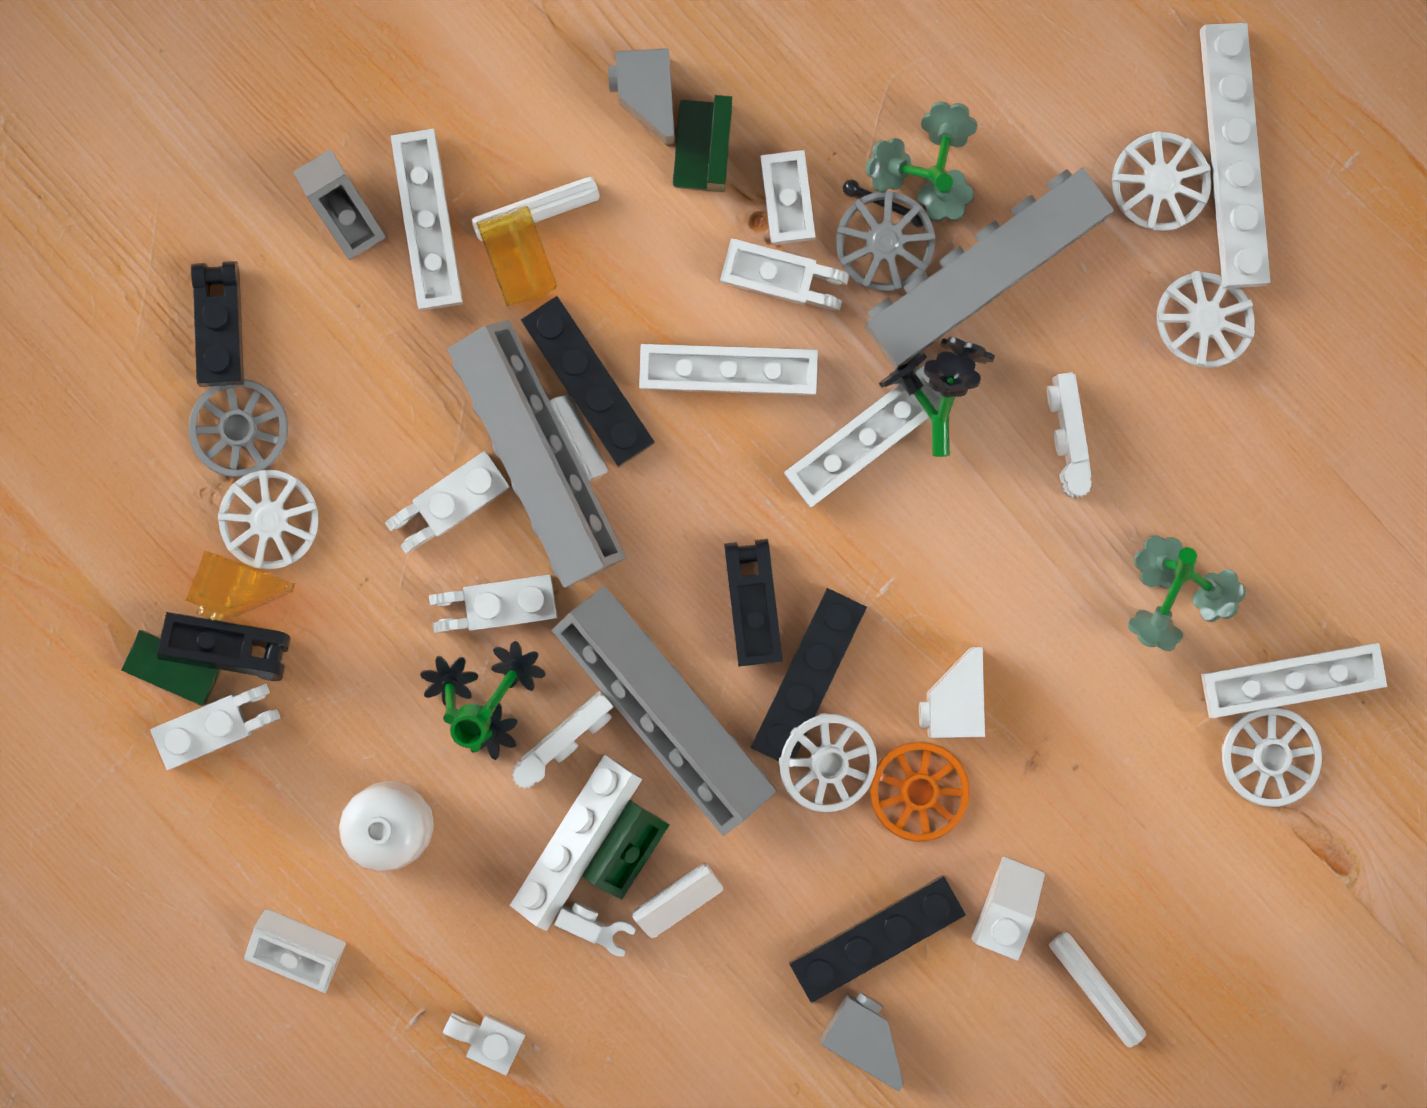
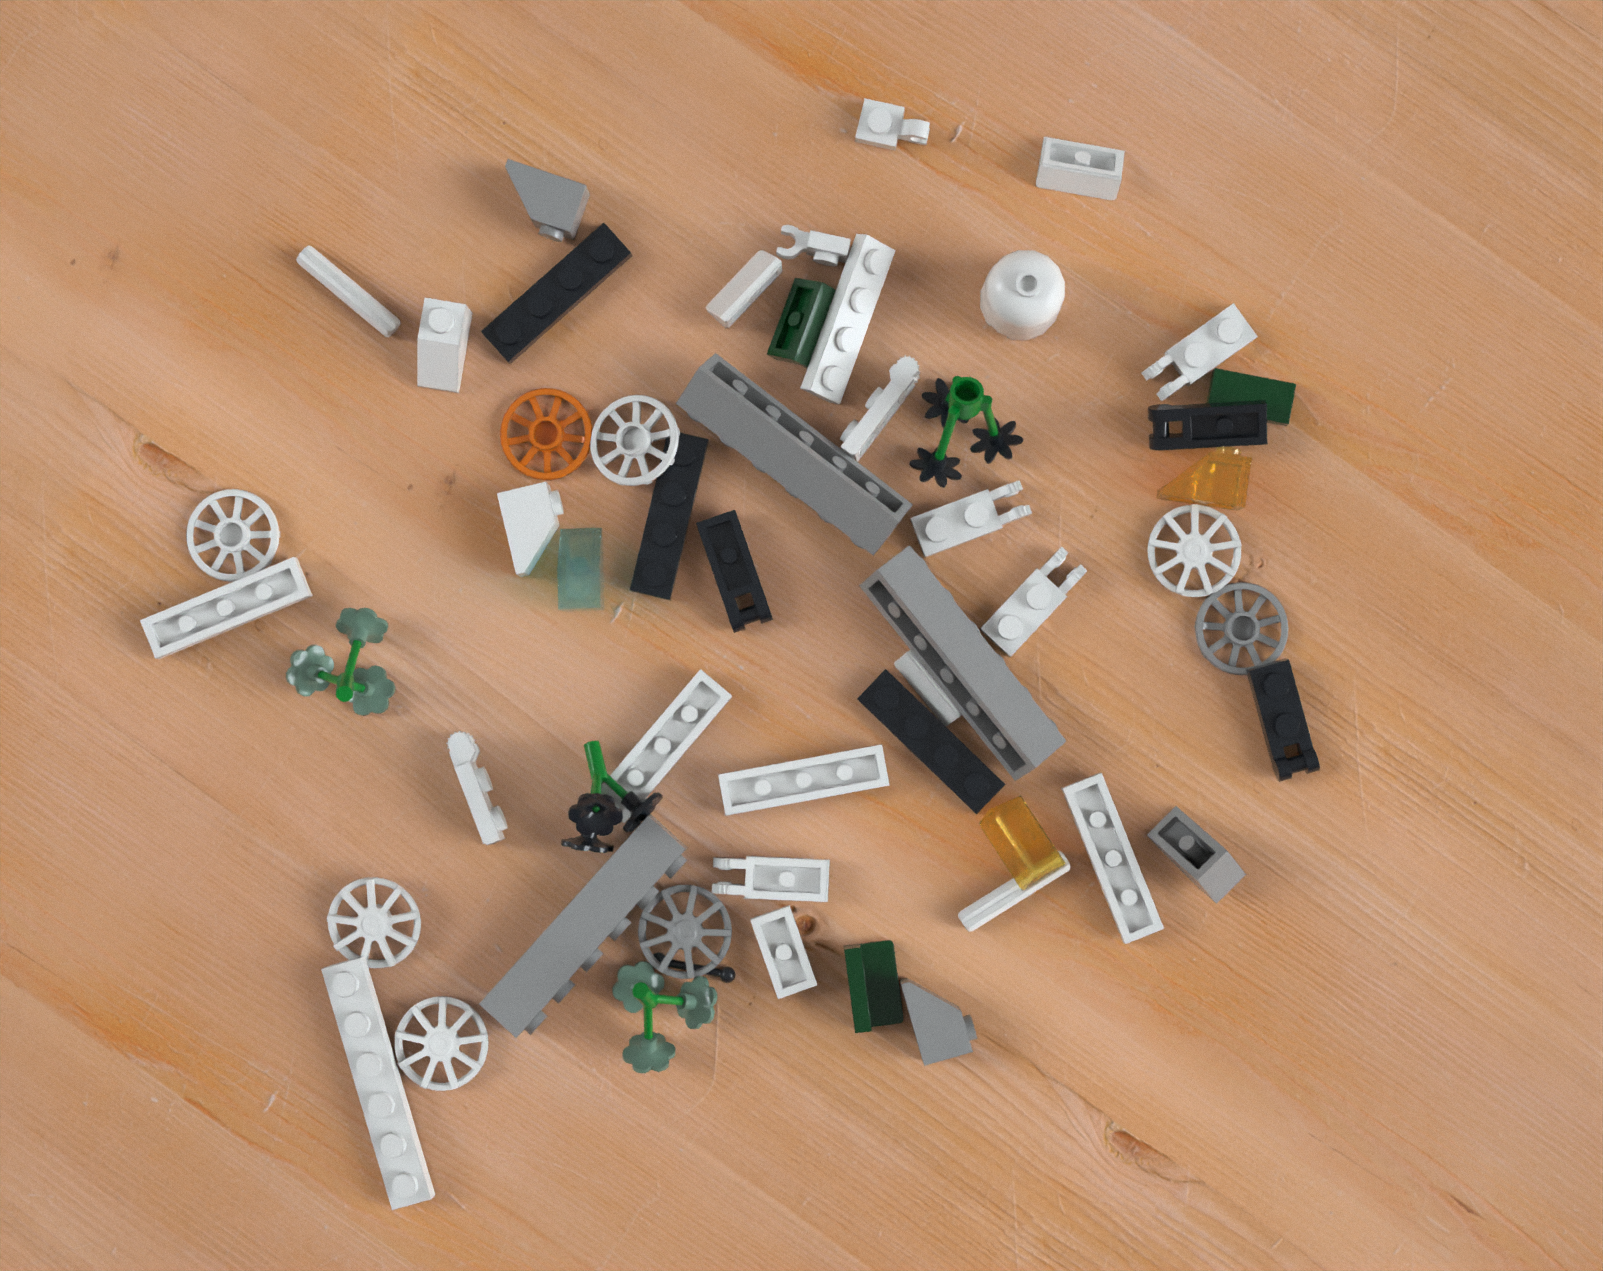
camera: 170 degrees right, 0 degrees up
(913, 639) = (580, 570): none -> clear light blue slope

